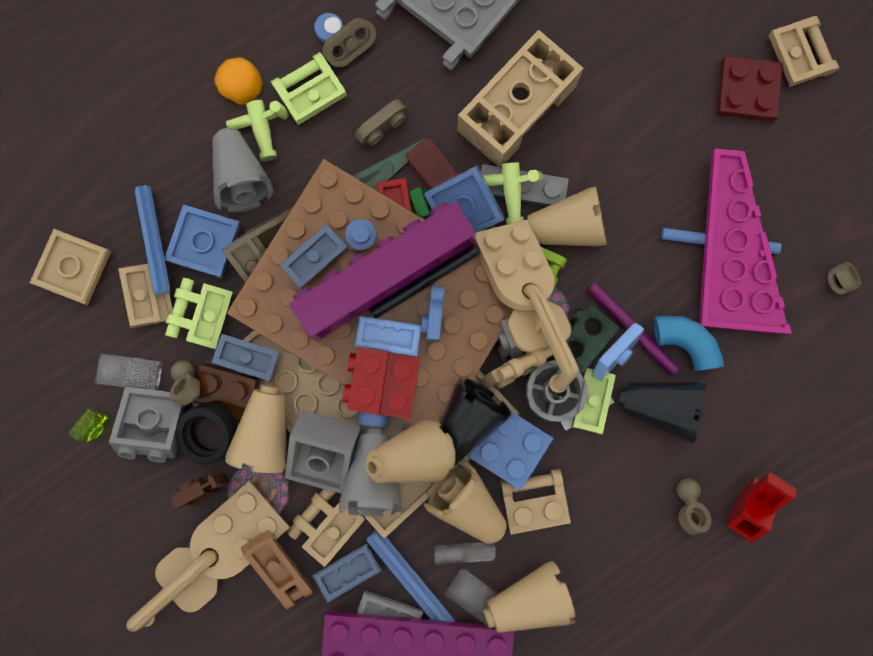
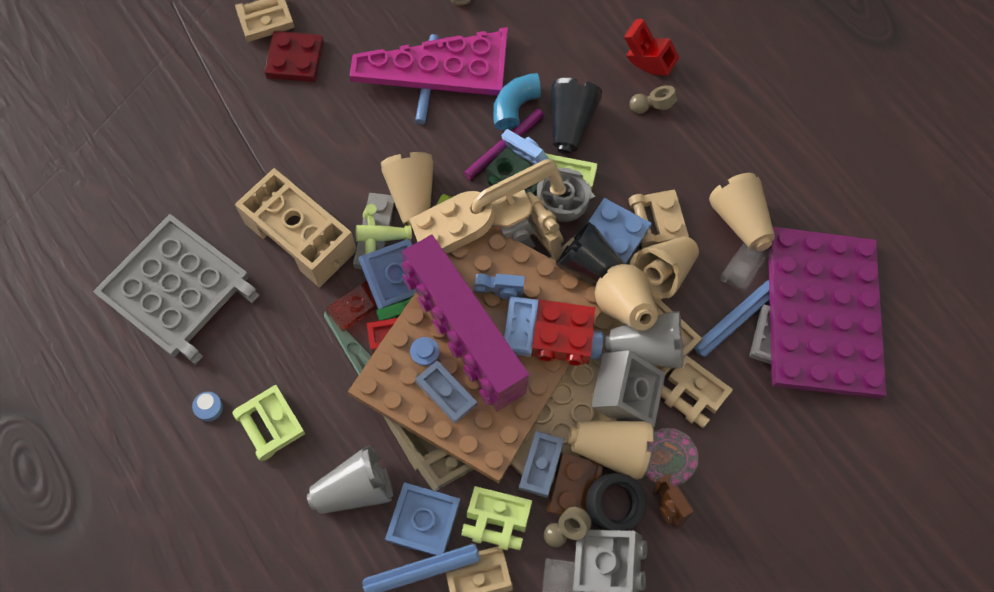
camera: 90 degrees left, 15 degrees down
(193, 573) = (708, 468): tan plate -> none
(238, 80) = (255, 493): light orange hair -> none
(258, 119) = (300, 469): yellowish green piece -> none
(276, 569) = (739, 427): medium nougat plate -> none
(347, 572) = (735, 371): sand blue plate -> none
(348, 43) = (225, 384): dark tan plate -> none
(390, 116) = (317, 359): dark tan plate -> none
(464, 553) = (708, 274): clear axle -> none

